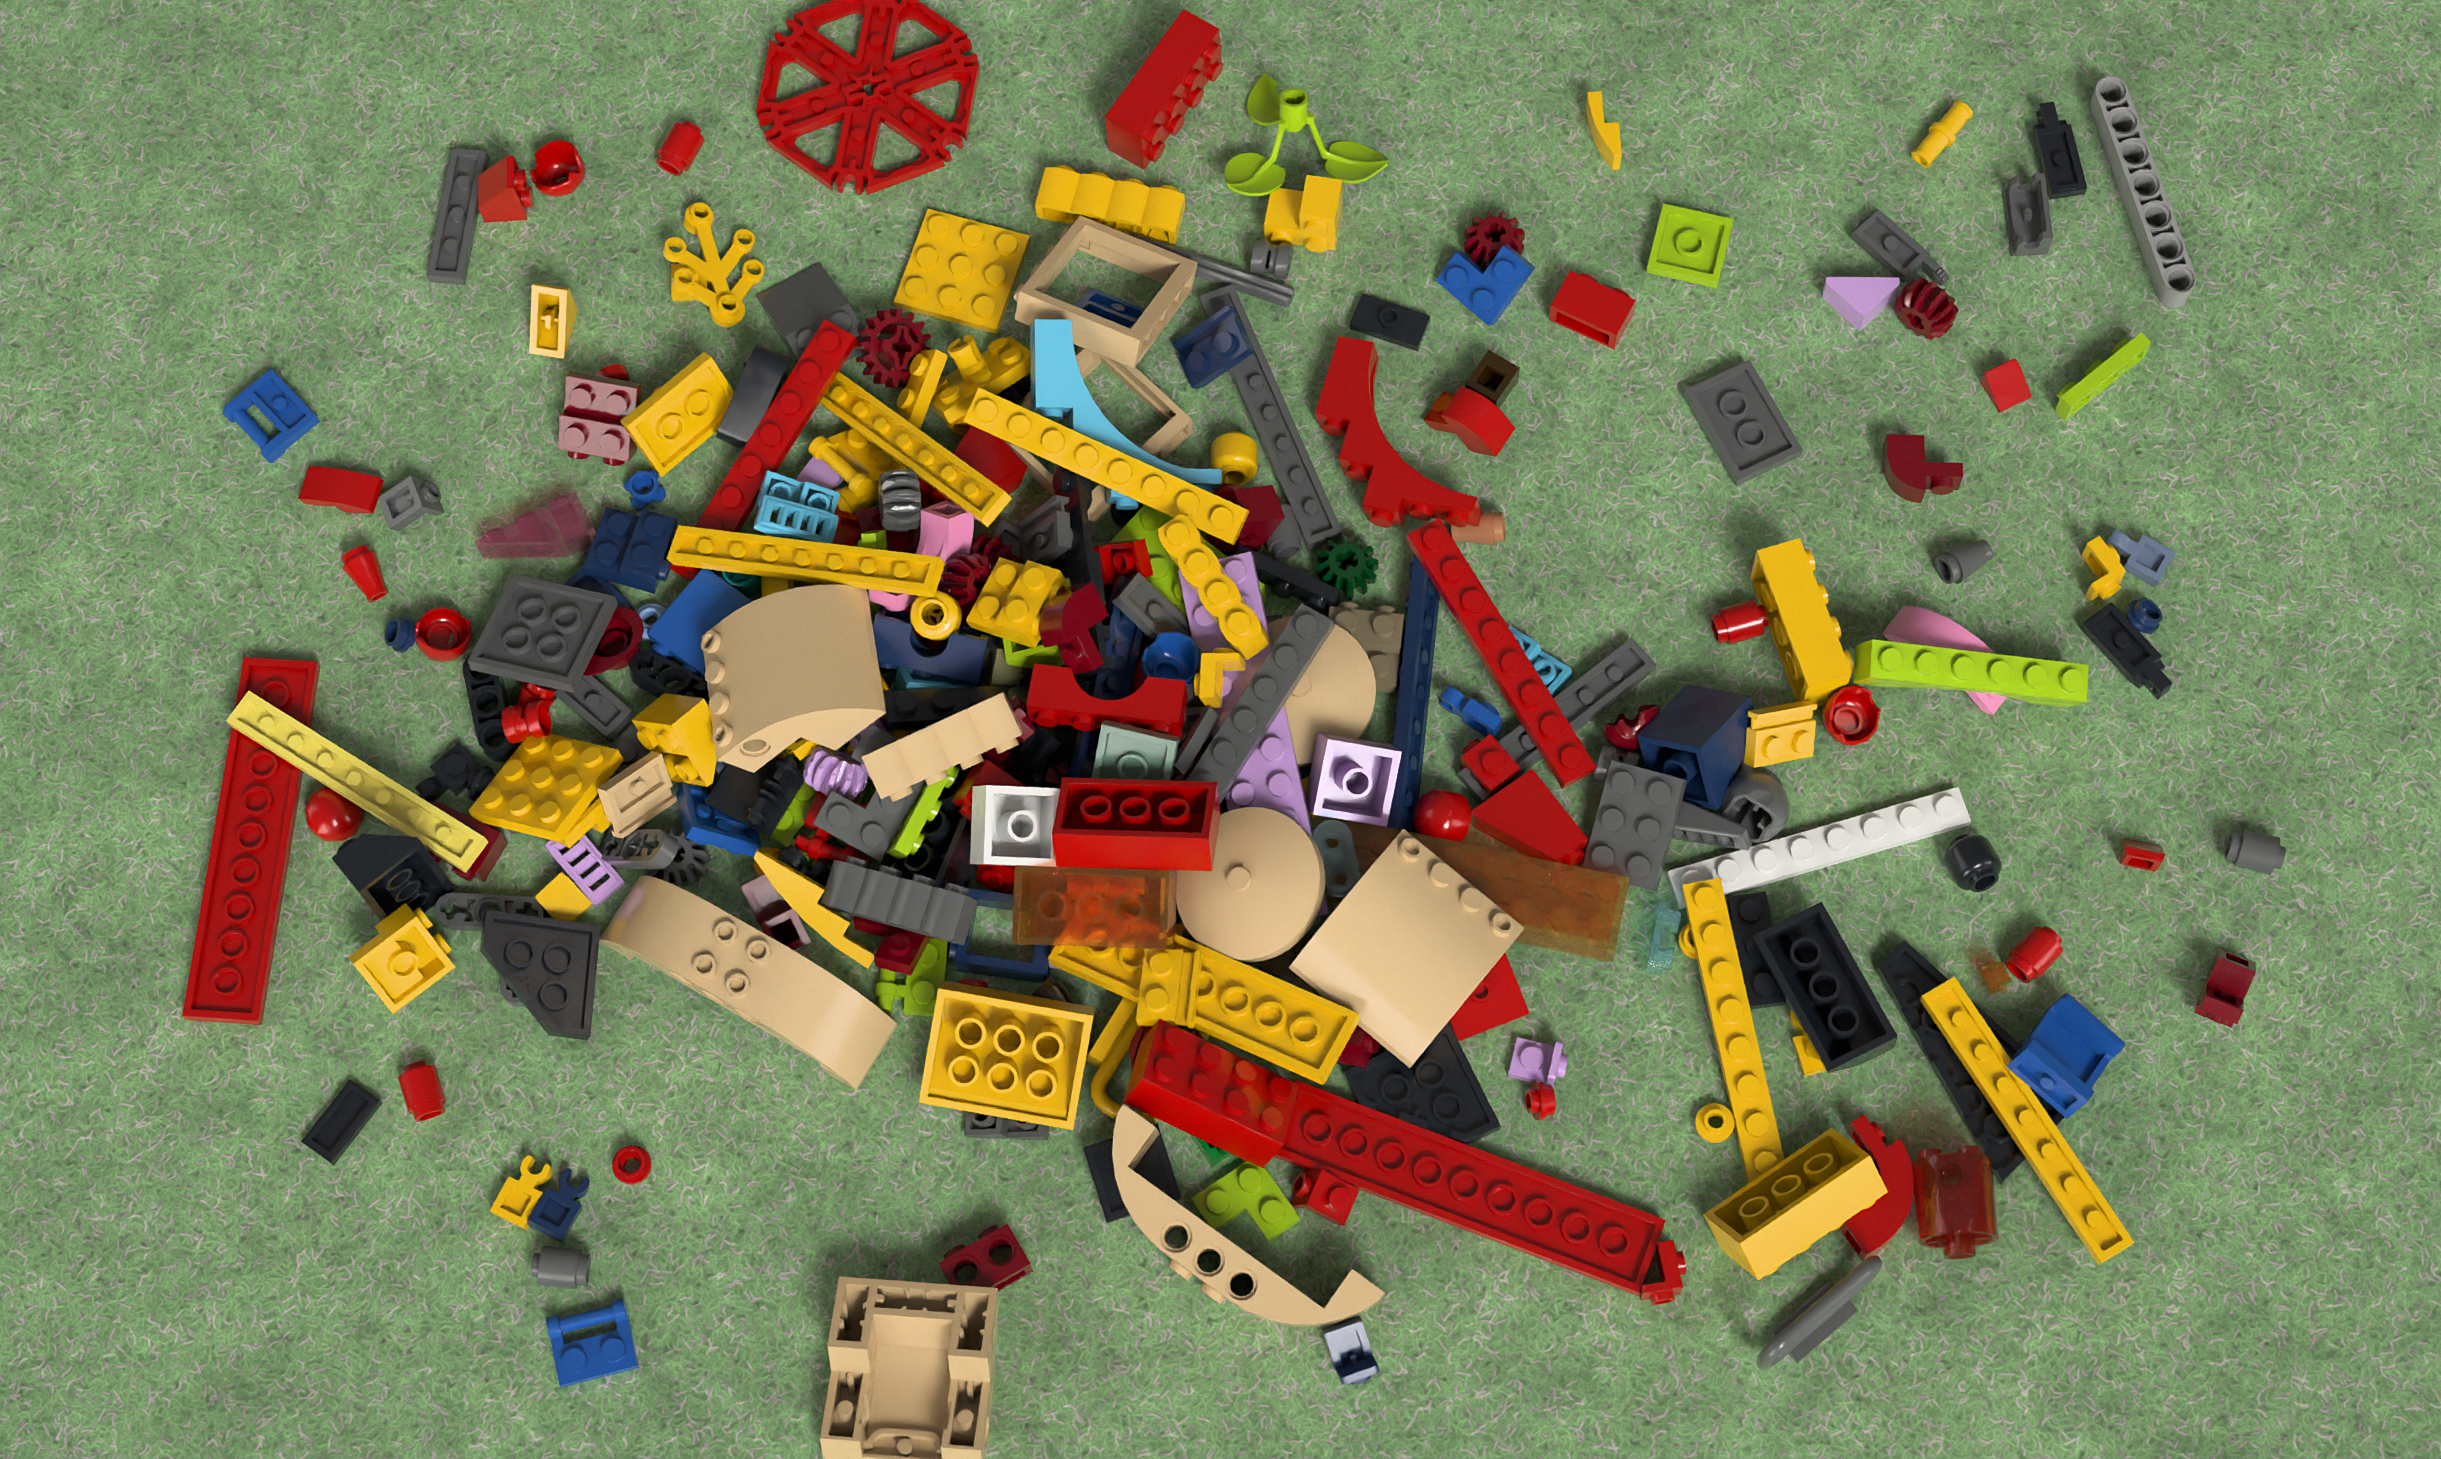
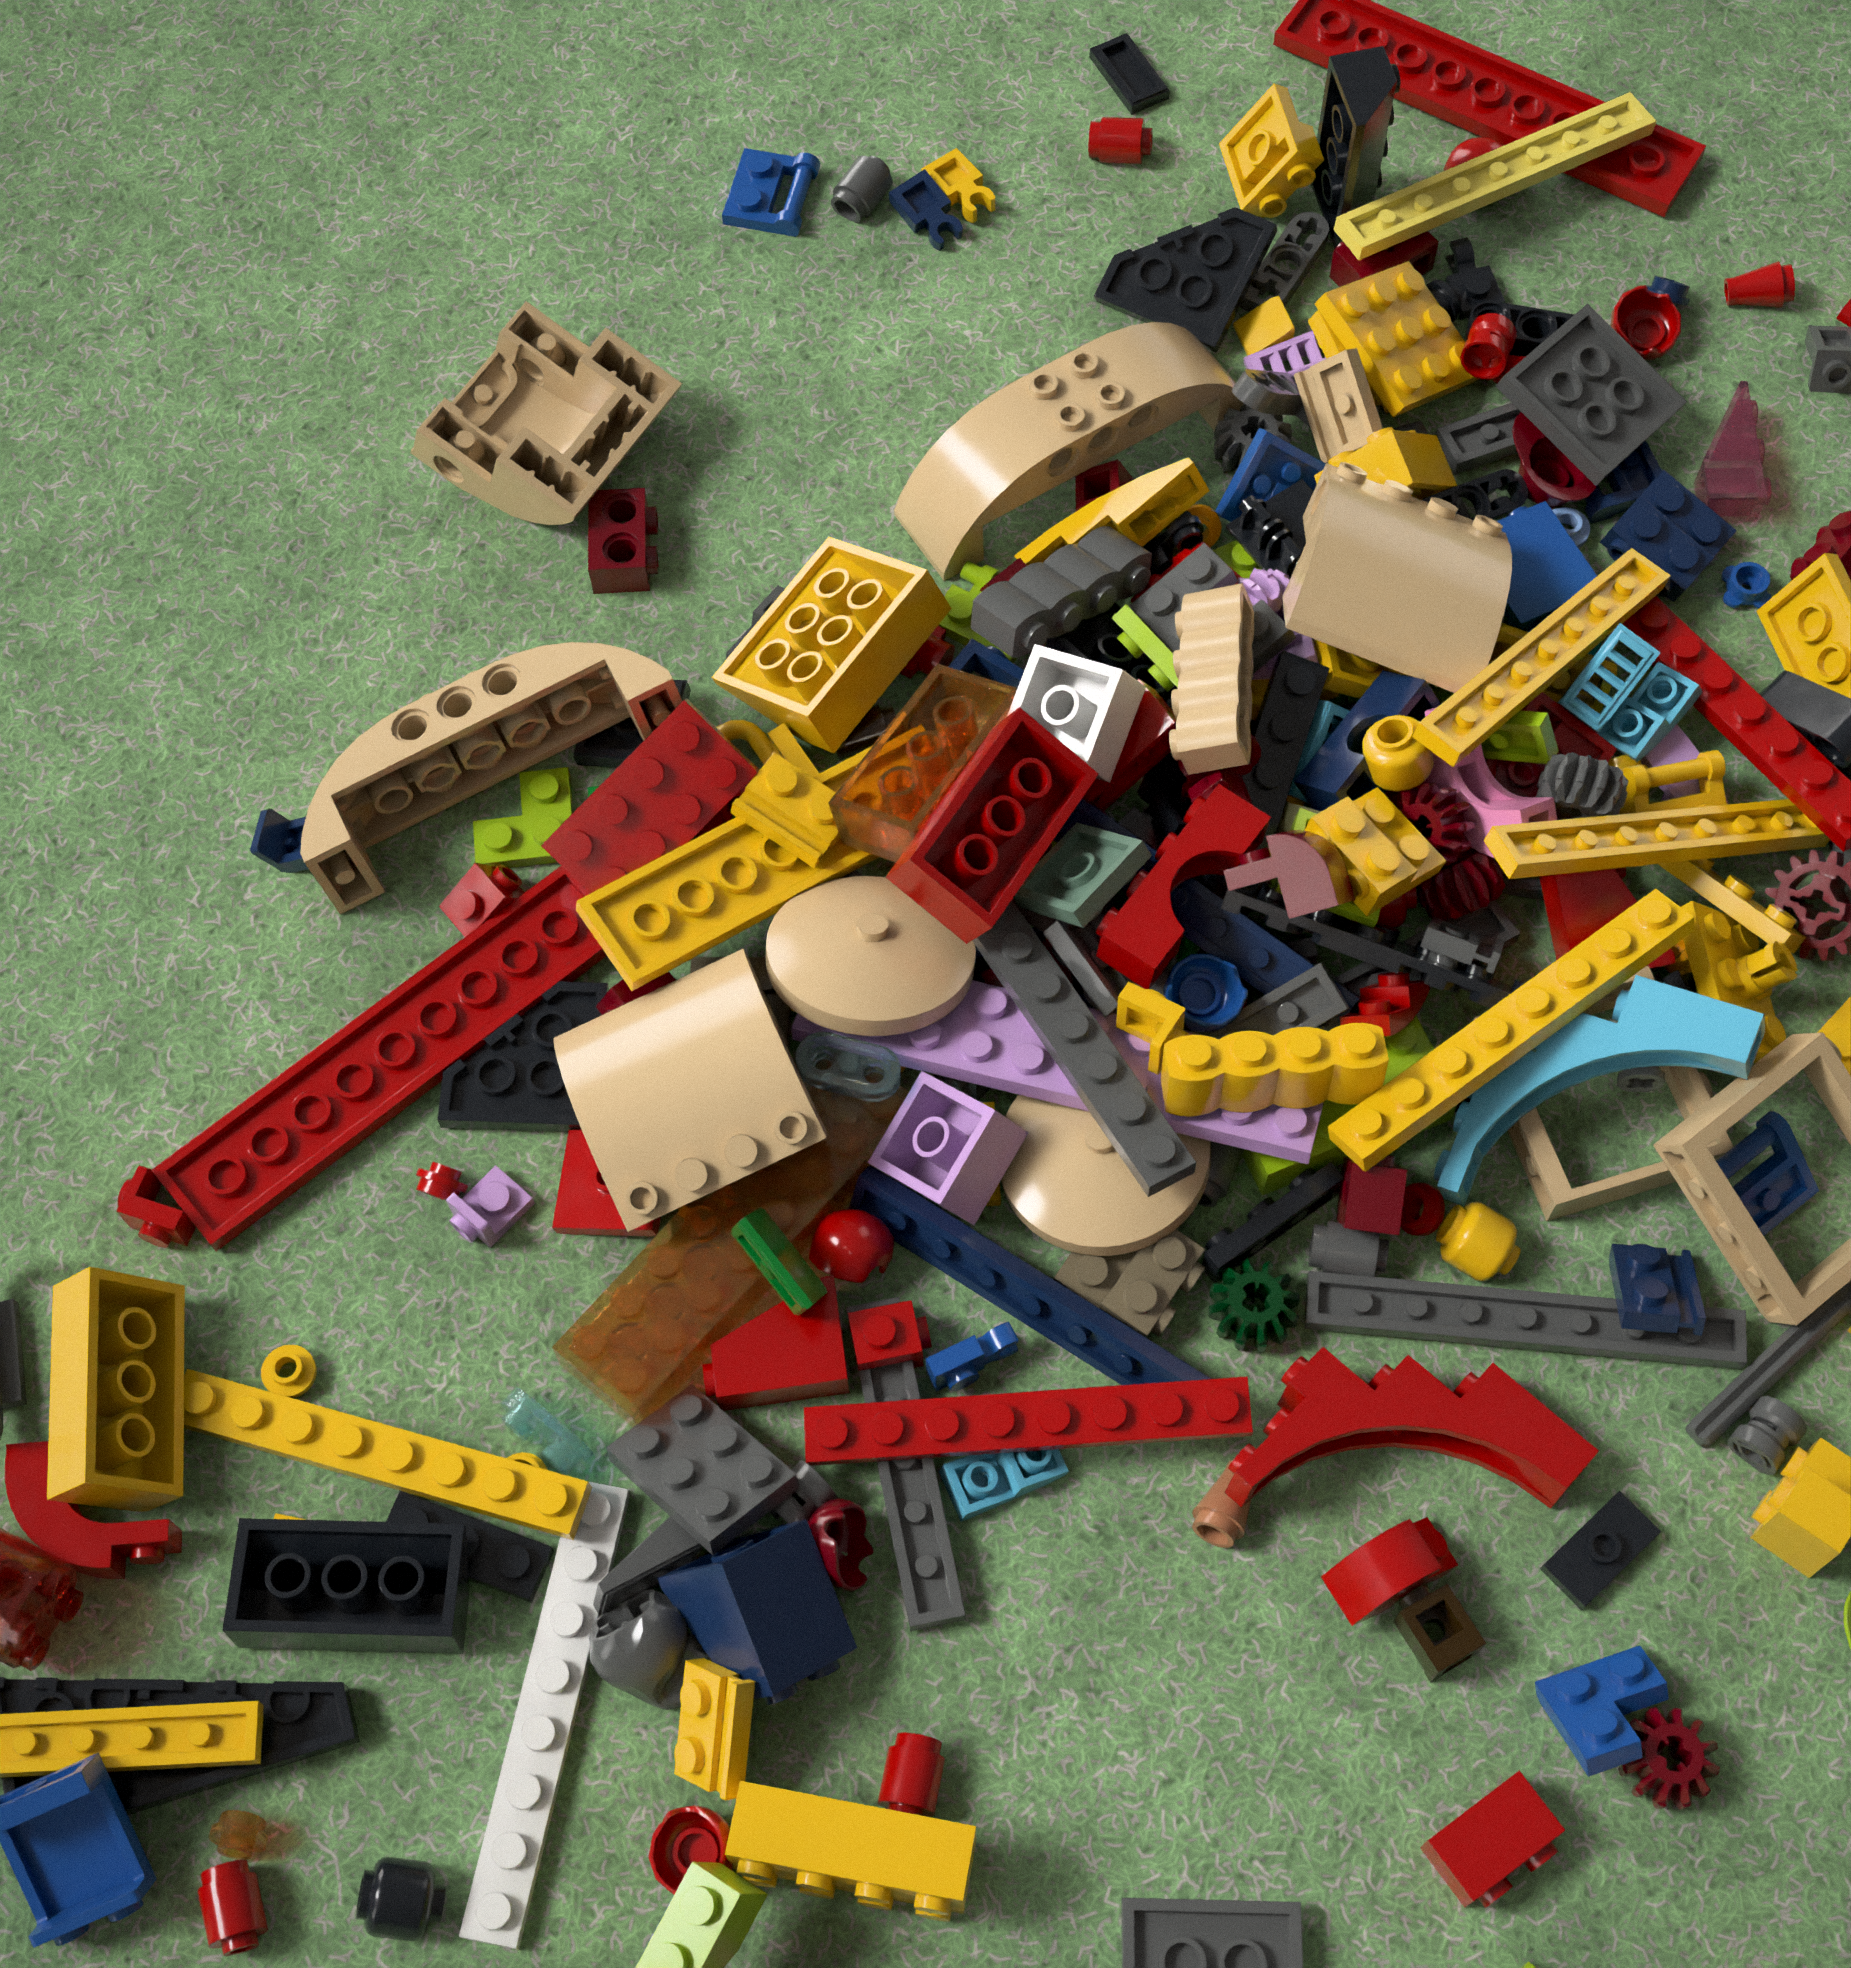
camera: 115 degrees right, 5 degrees down
(626, 1154) = (931, 275): red plate -> none
(1487, 835) = (778, 1261): none -> green slope

